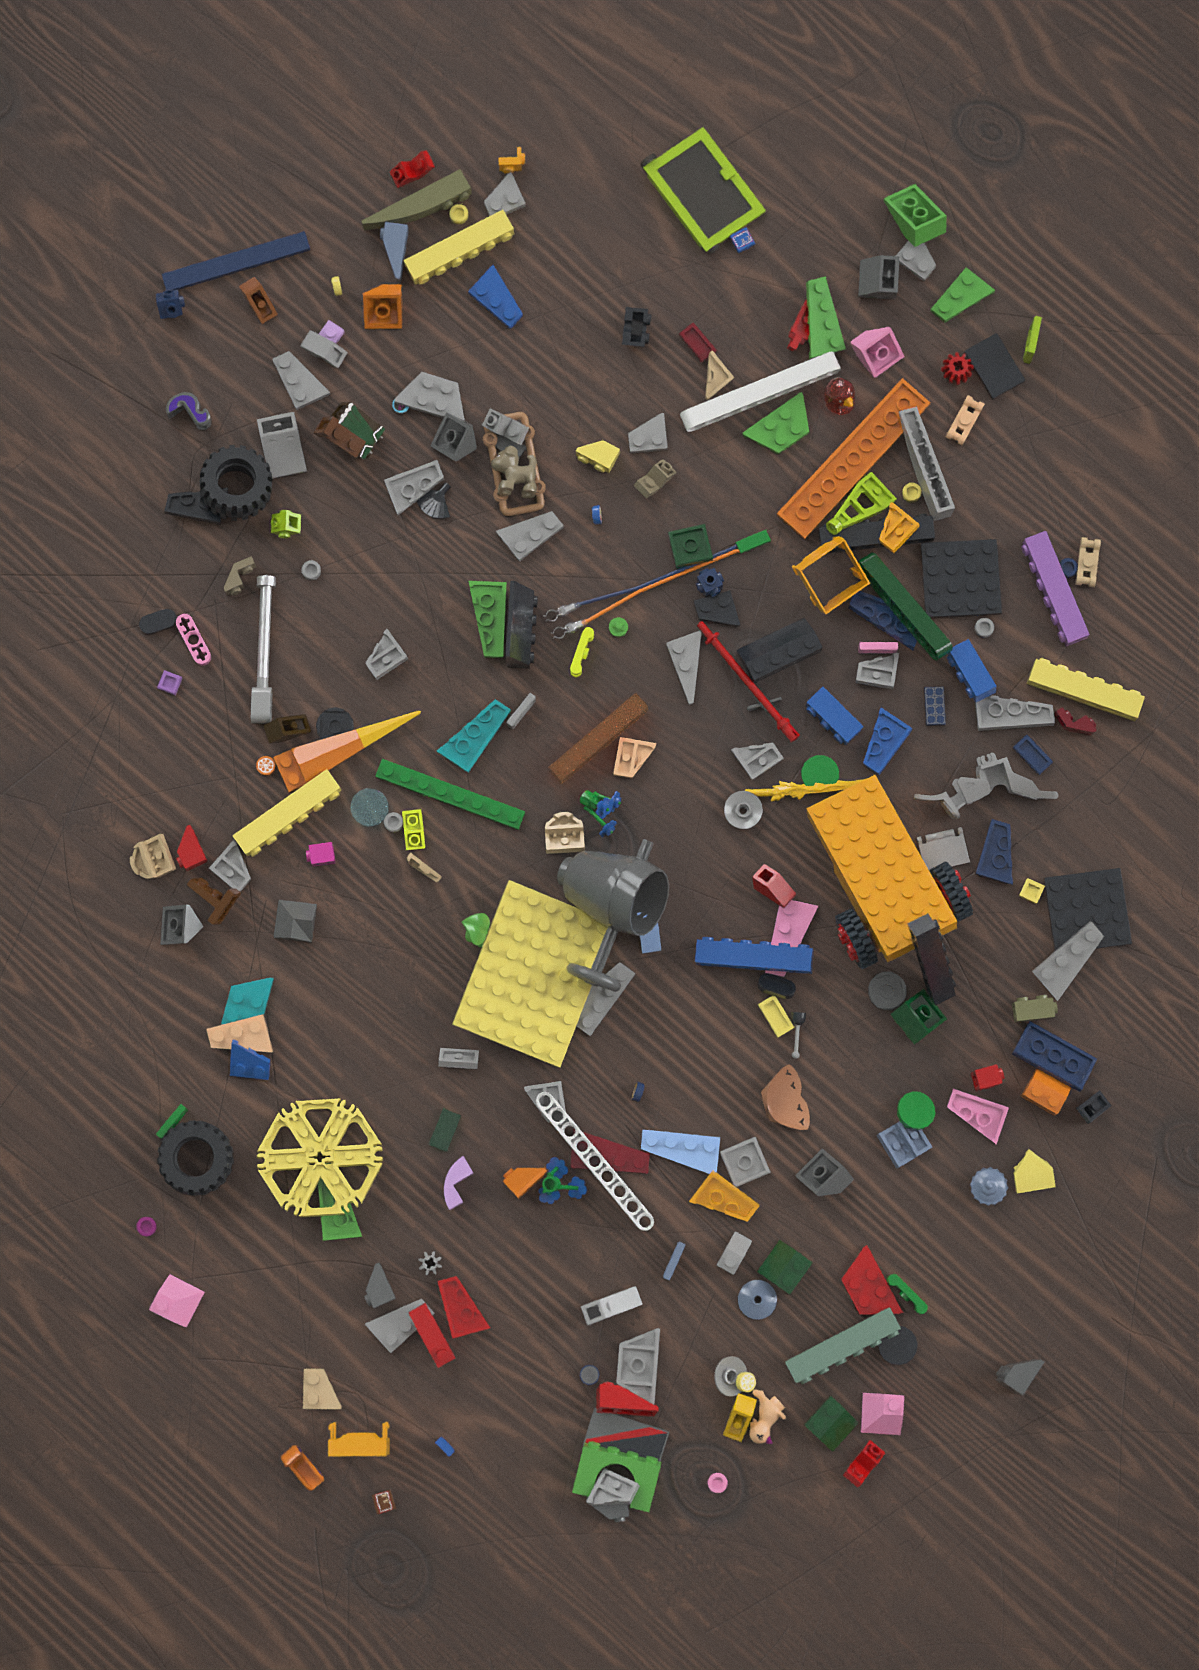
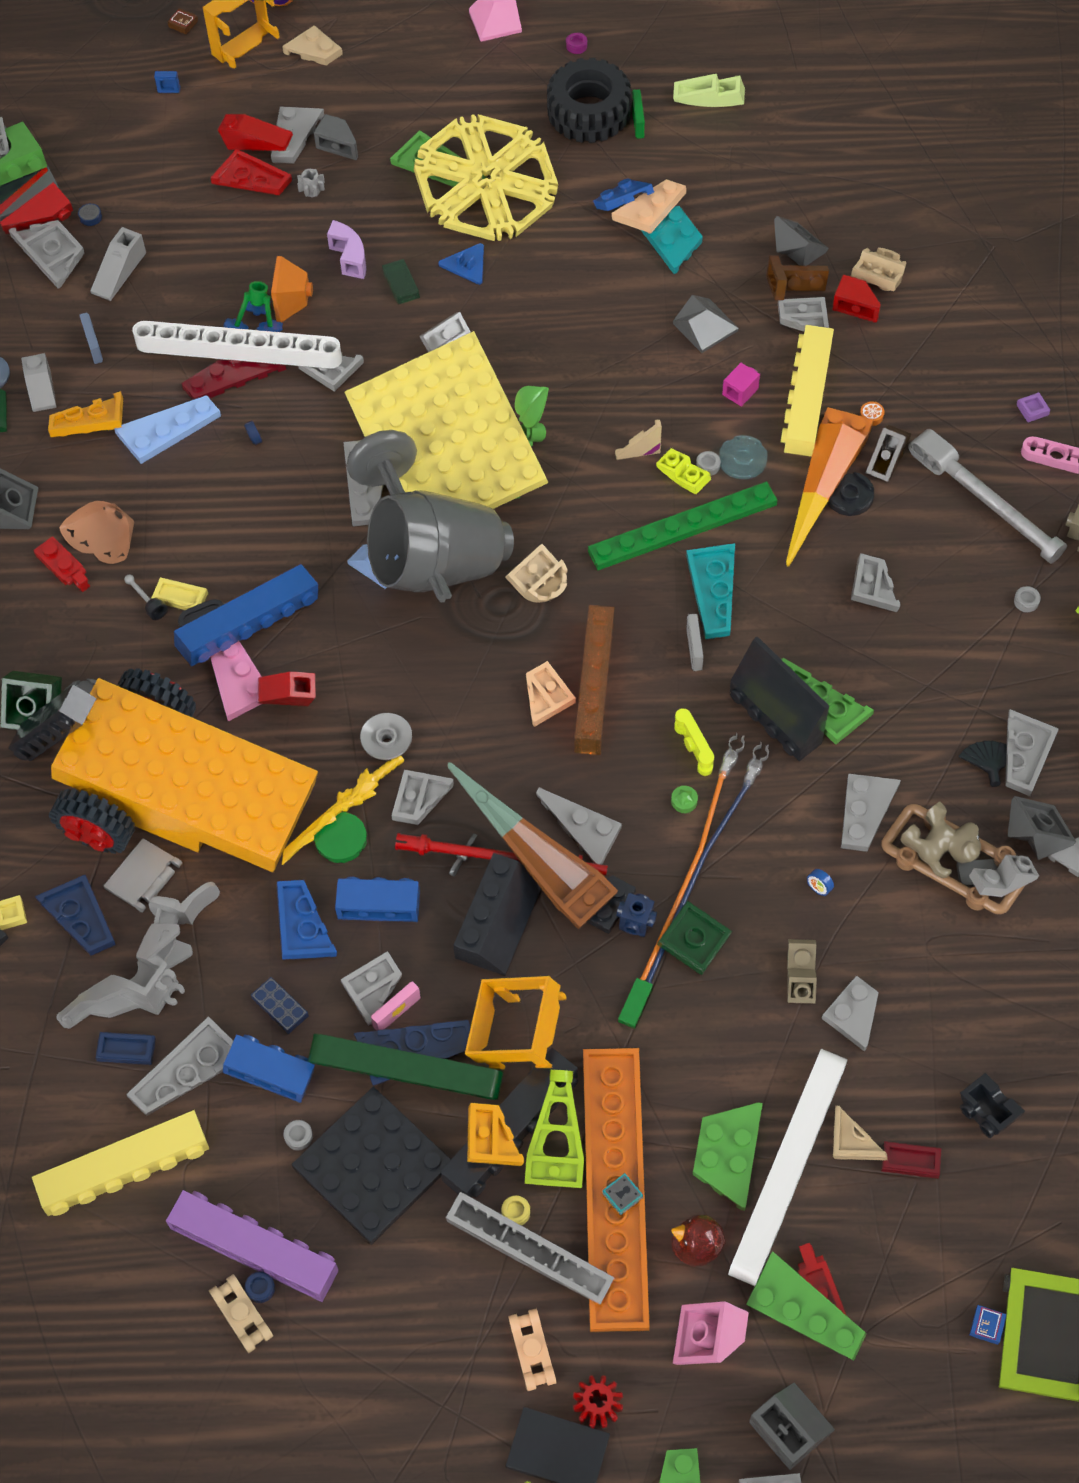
camera: 140 degrees right, 20 degrees down
(108, 1098) = (710, 91): none -> yellowish green slope
(390, 1107) = (466, 263): none -> blue piece
(592, 800) = (543, 621): plant -> none
(599, 454) = (881, 942): light yellow slope -> none
(729, 631) = (565, 878): none -> dark orange plate
(745, 1162) = (97, 461): light grey tile -> none
(825, 1102) = (62, 563): none -> red hinge
(856, 447) = (622, 1194): none -> tile
(1083, 725) = (94, 1119): dark red slope -> none

